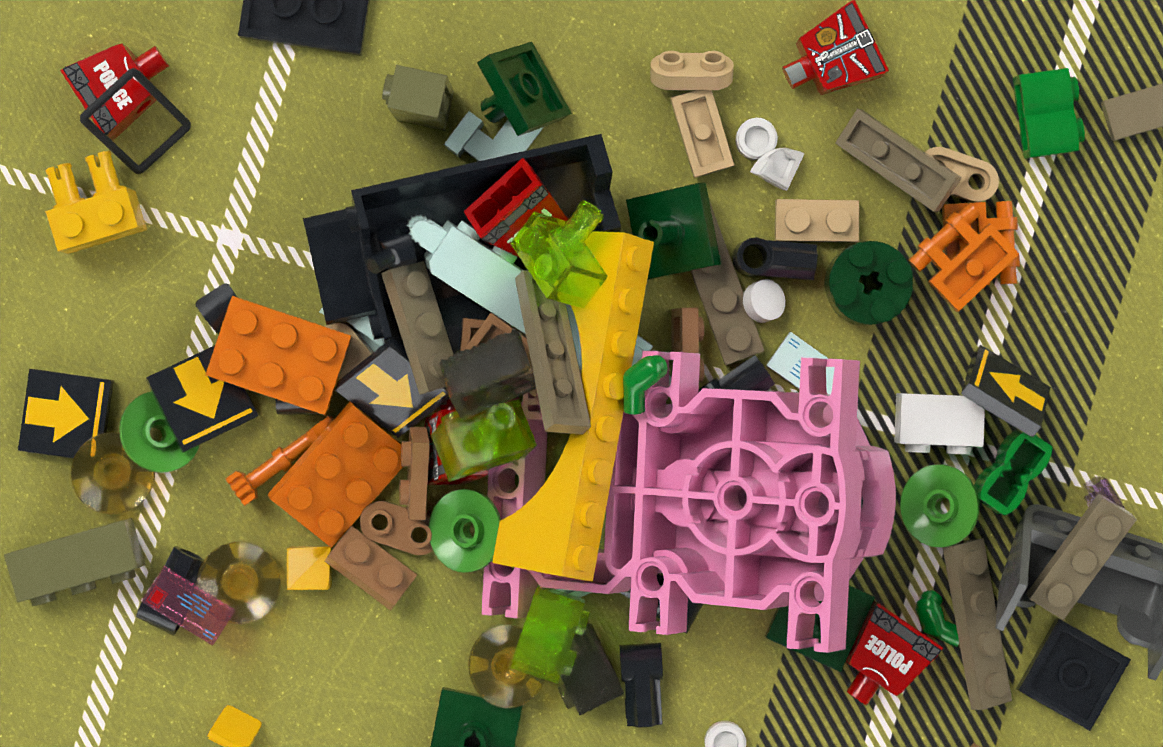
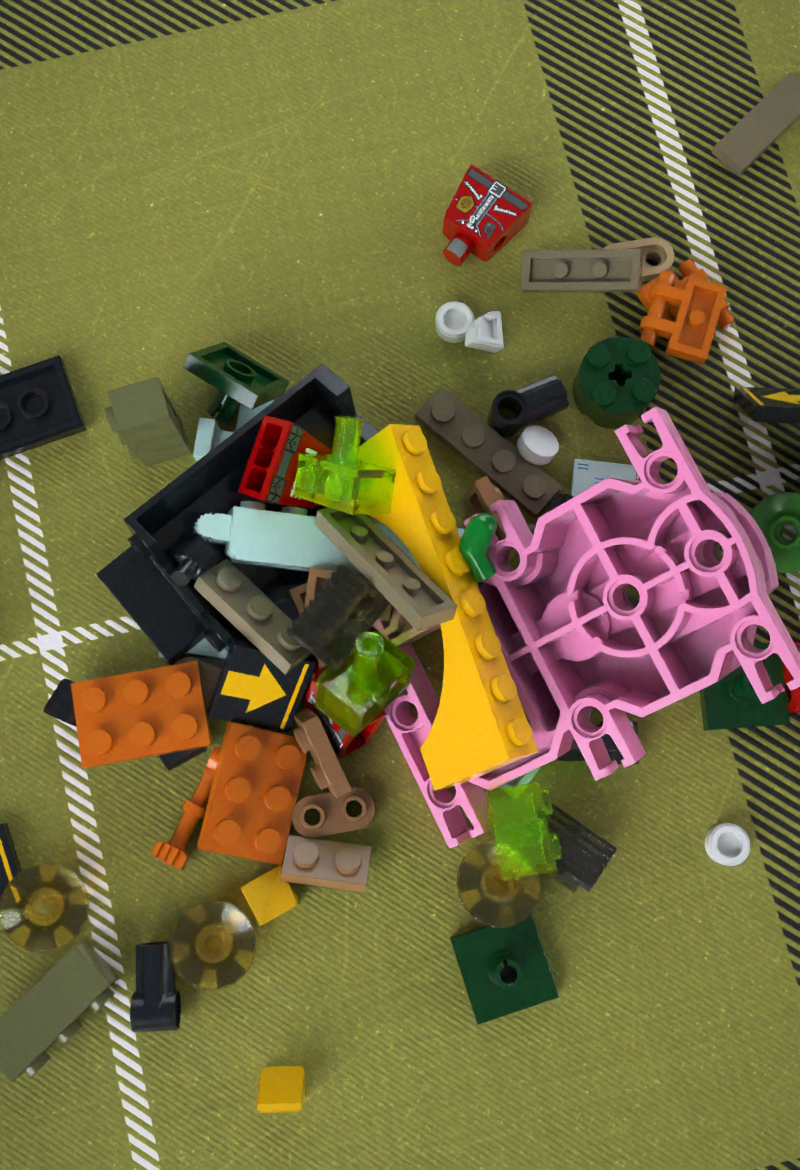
camera: 30 degrees left, 10 degrees down
(138, 444) = (75, 827): bright green dish -> none
(188, 605) = (174, 993): clear pink tile -> none
(197, 404) = (92, 800): black tile -> none
(451, 530) = (377, 782): bright green dish -> none
(642, 675) = (619, 821): black piece -> none
(679, 226) = (441, 416): dark green tile -> none
(691, 71) = (360, 298): tan plate -> none
(702, 132) = (406, 337): tan plate -> none
(816, 220) = (542, 358): tan plate -> none
(938, 420) = (745, 461): white brick -> none
(1047, 113) = (677, 176): green brick -> none

